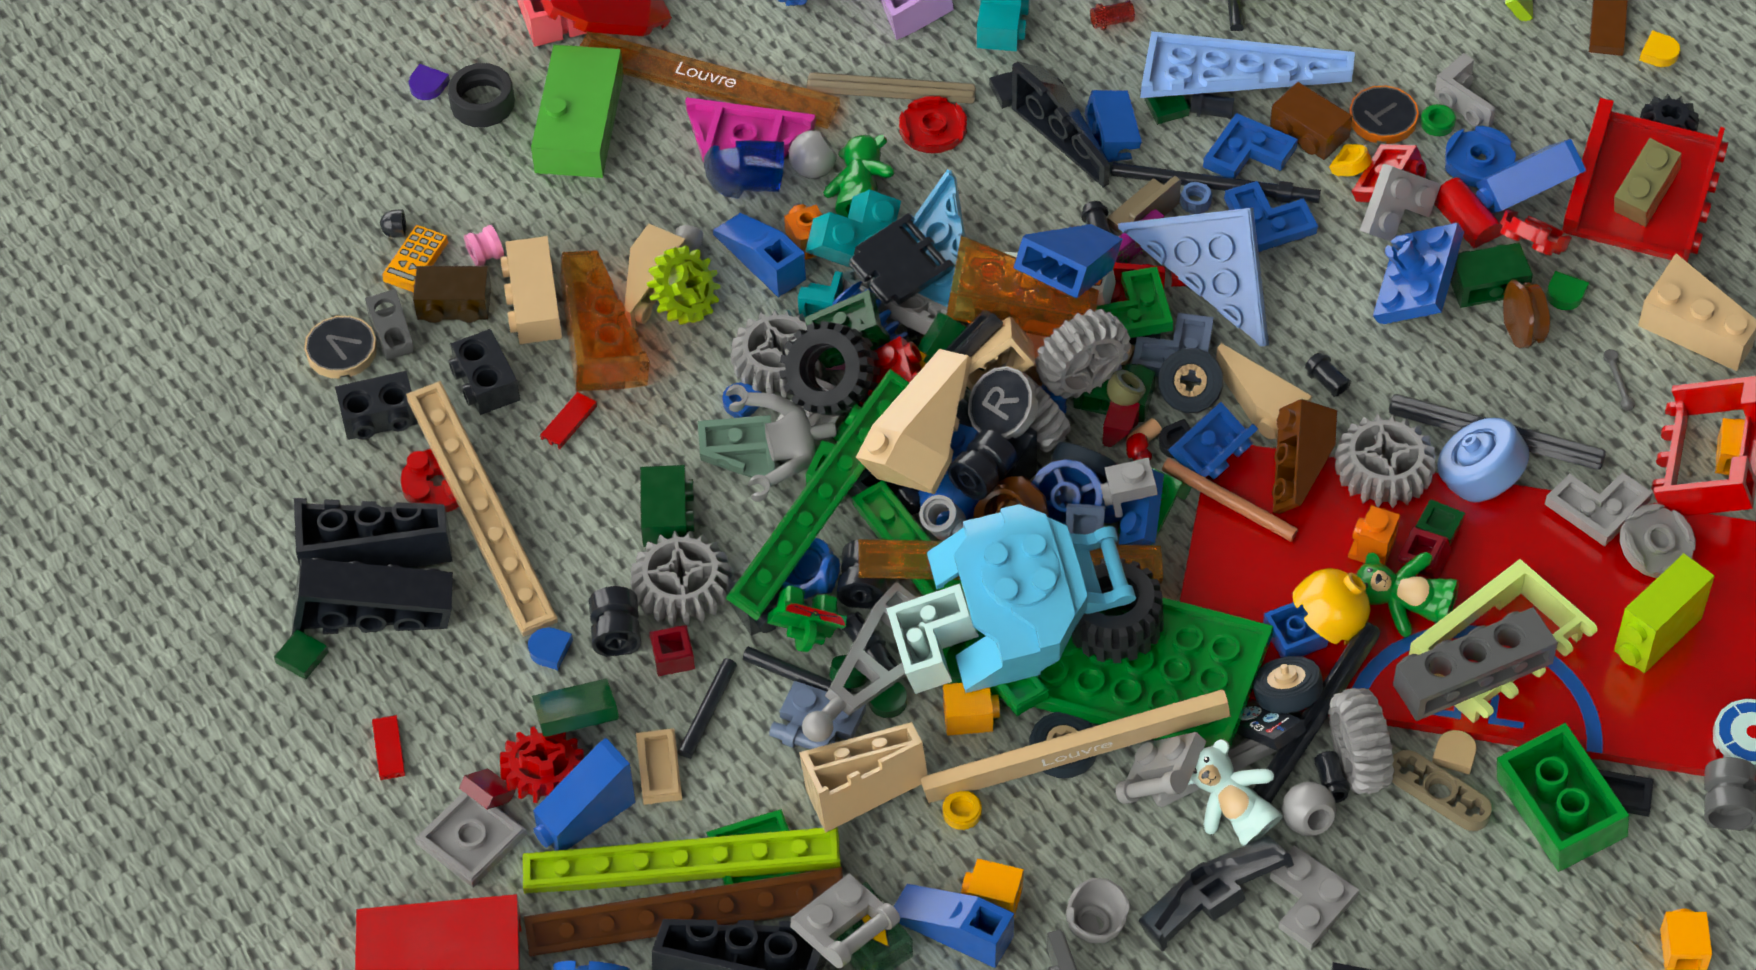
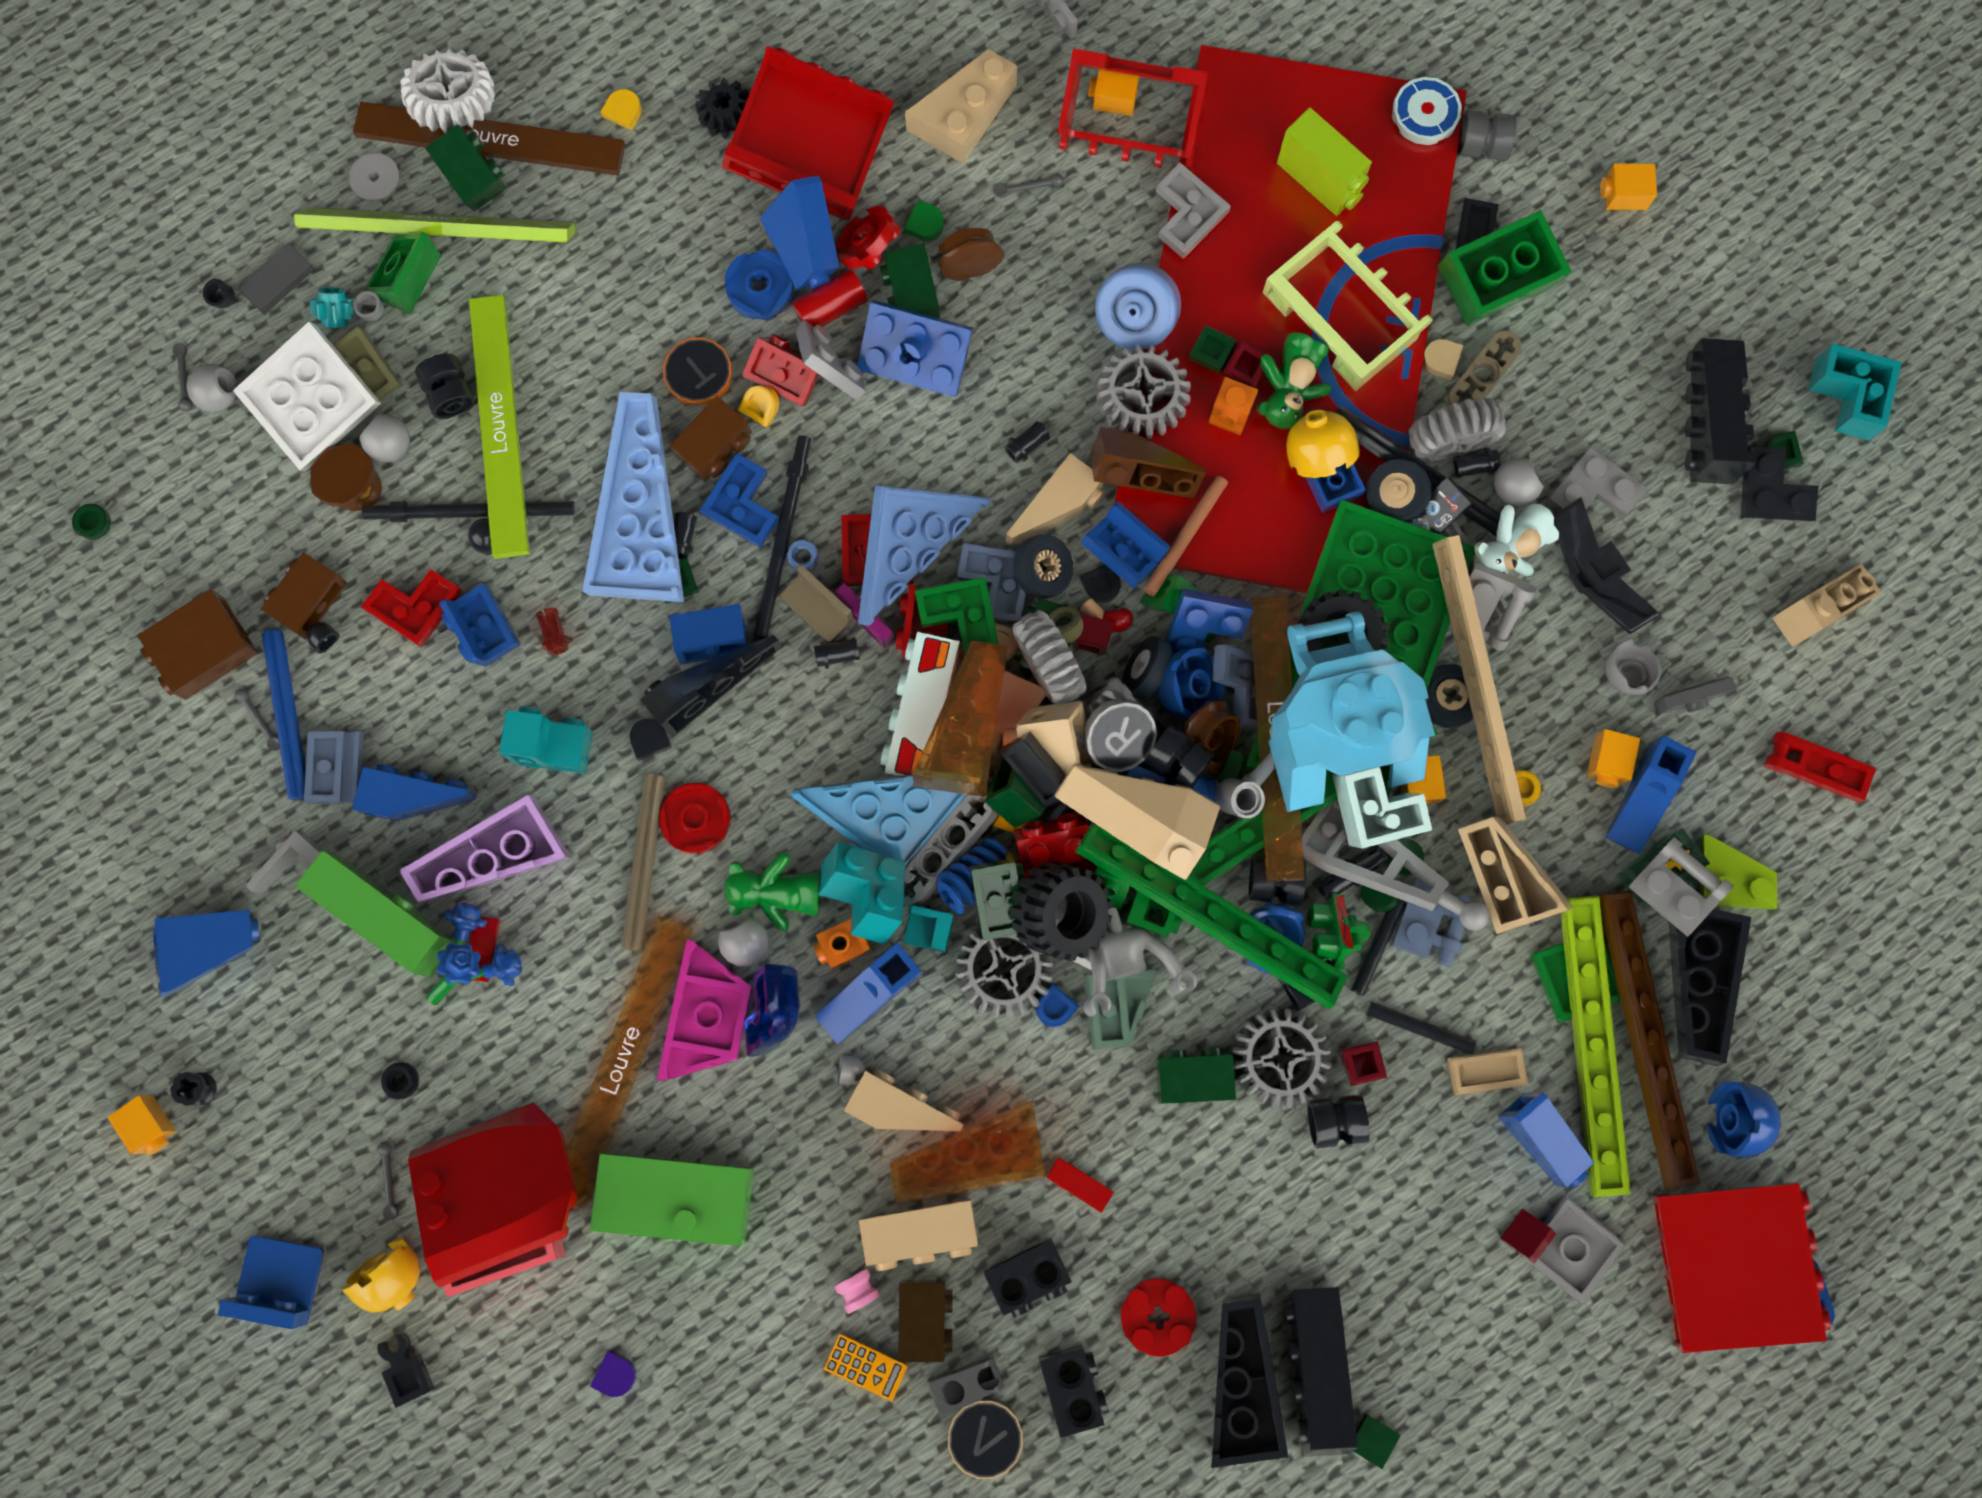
camera: 90 degrees left, 25 degrees up
(388, 747) = (1477, 1340): red piece -> none
(394, 223) = (821, 1394): black hinge -> none
(481, 114) = (611, 1311): black tyre -> none
(482, 509) = (1202, 1268): tan tile -> none
(538, 762) = (1507, 1201): red gear -> none
(549, 646) = (1357, 1187): blue tile -> none
(575, 707) = (1440, 1154): dark green tile -> none
(683, 285) = (925, 1070): lime gear -> none
(899, 262) = (918, 843): black plate -> none
(1069, 257) = (947, 662): blue slope -> none
(1128, 483) = (1203, 619): light grey bracket -> none
(1273, 225) = (841, 493): blue plate -> none
(1427, 694) = (1382, 272): dark grey brick -> none
(1438, 120) = (706, 321): green tile -> none
(1453, 92) = (680, 304): light grey bracket -> none
(1537, 442) = (1086, 309): black axle -> none
(1647, 182) = (819, 126): olive brick -> none
(1655, 539) = (1229, 164): light grey tile -> none

